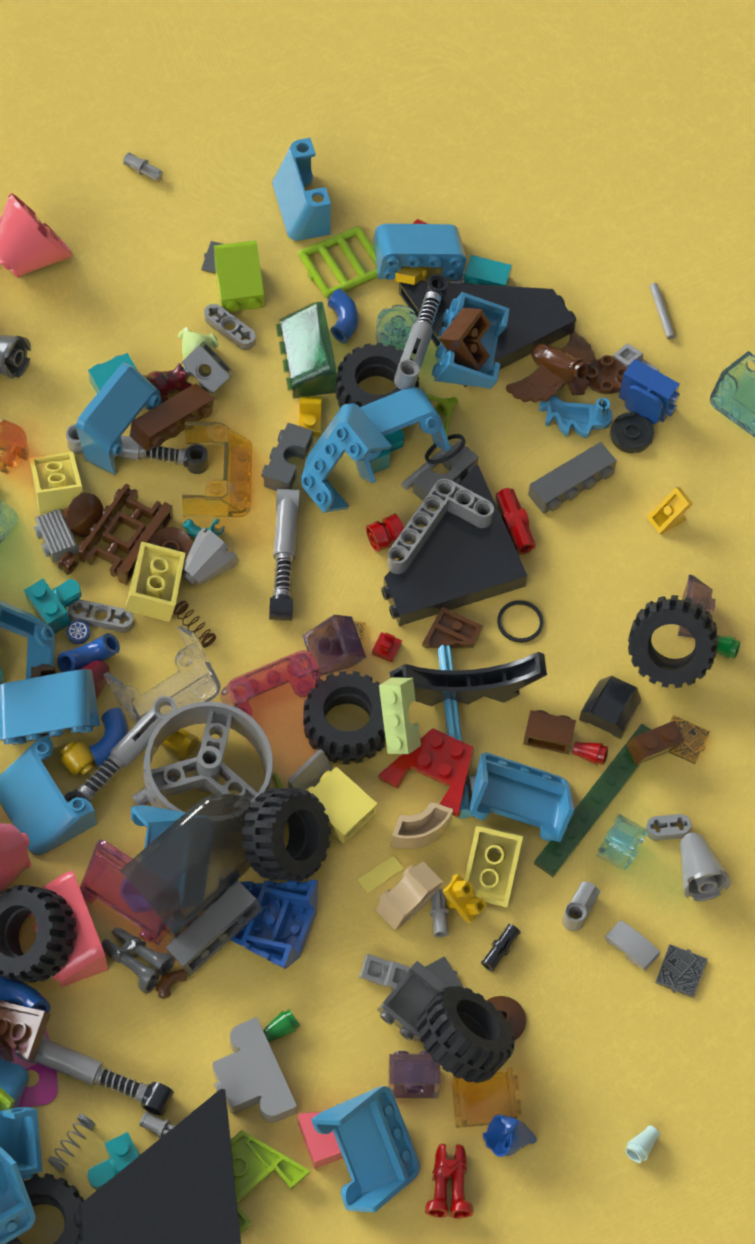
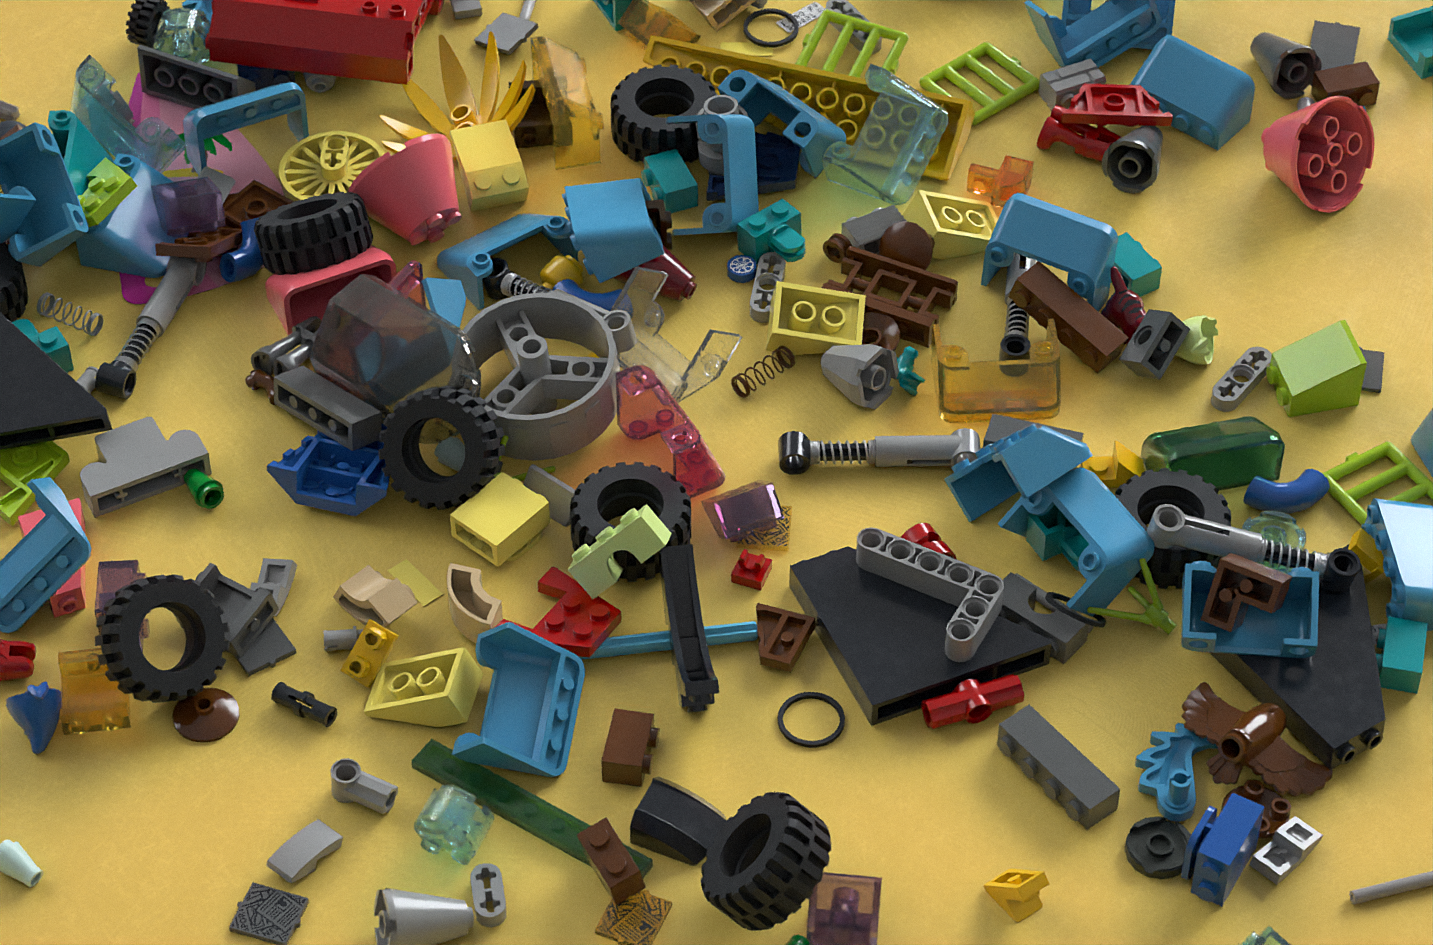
camera: 90 degrees right, 15 degrees down
(99, 649) = (708, 277): blue cylinder -> none
(592, 752) = (600, 799): red cone -> none

